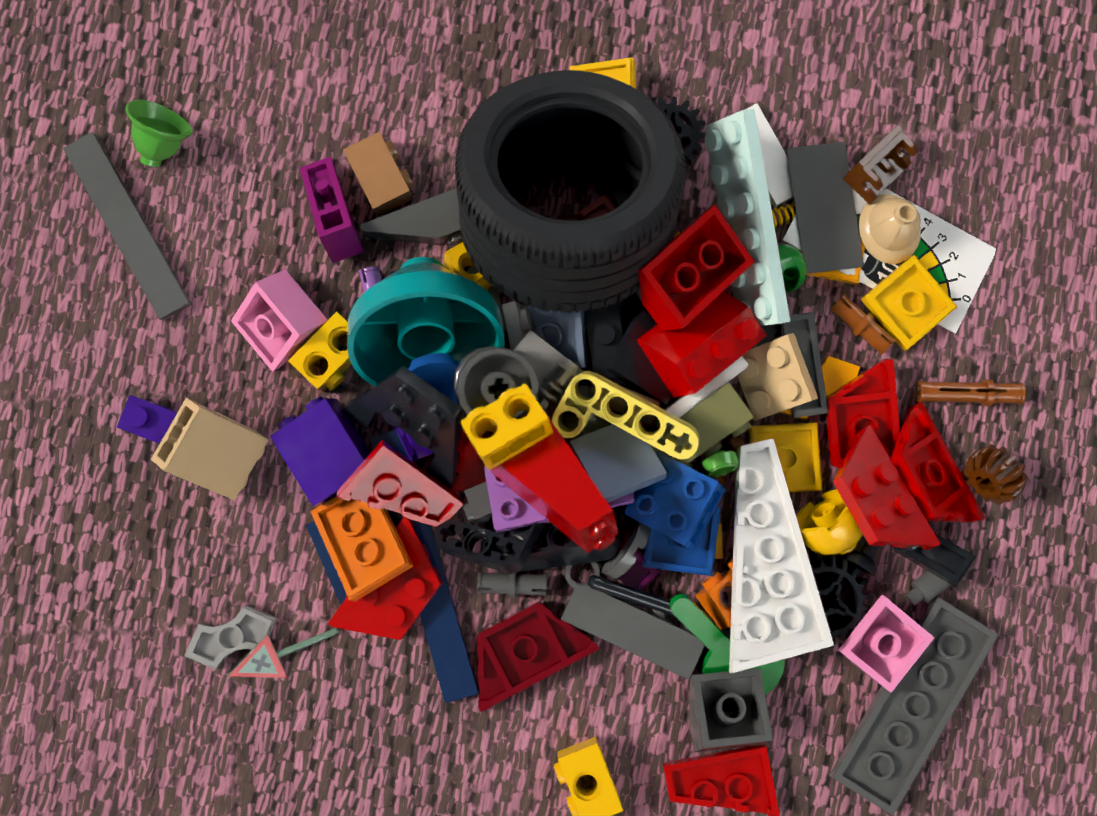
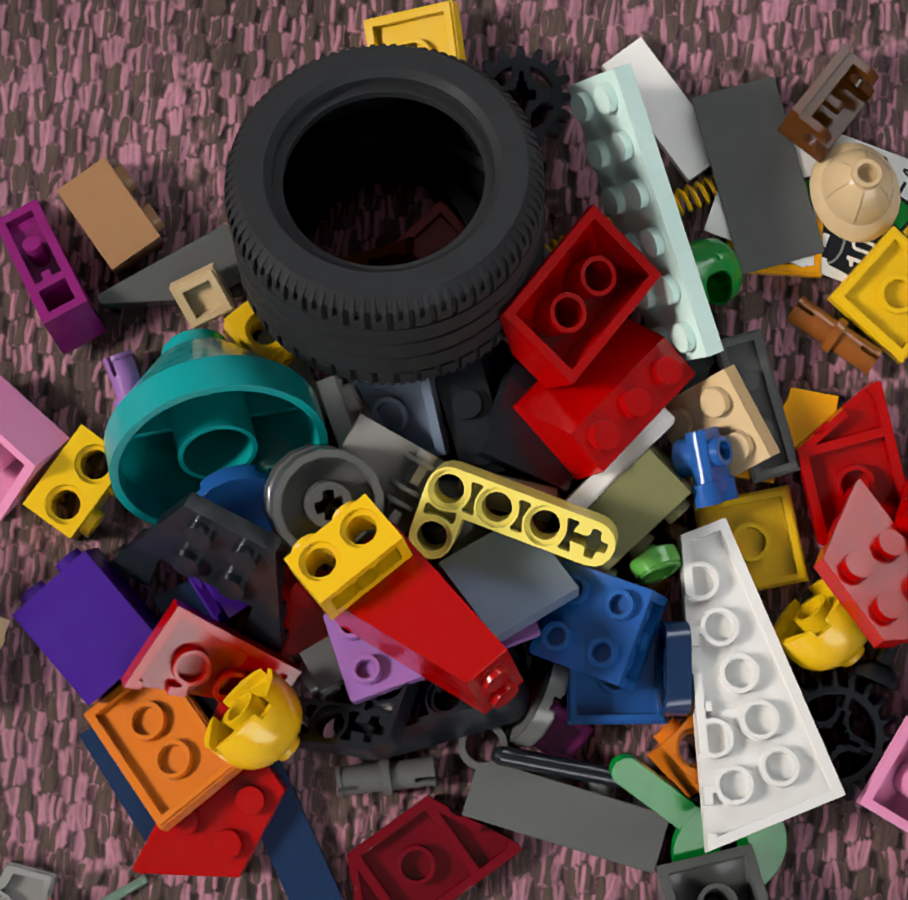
camera: 10 degrees left, 0 degrees up
(428, 536) = (259, 723): none -> yellow cylinder
(432, 235) = (203, 296): none -> tan tile
(724, 538) = (674, 668): none -> dark blue beam
(766, 396) = (706, 459): none -> blue plate

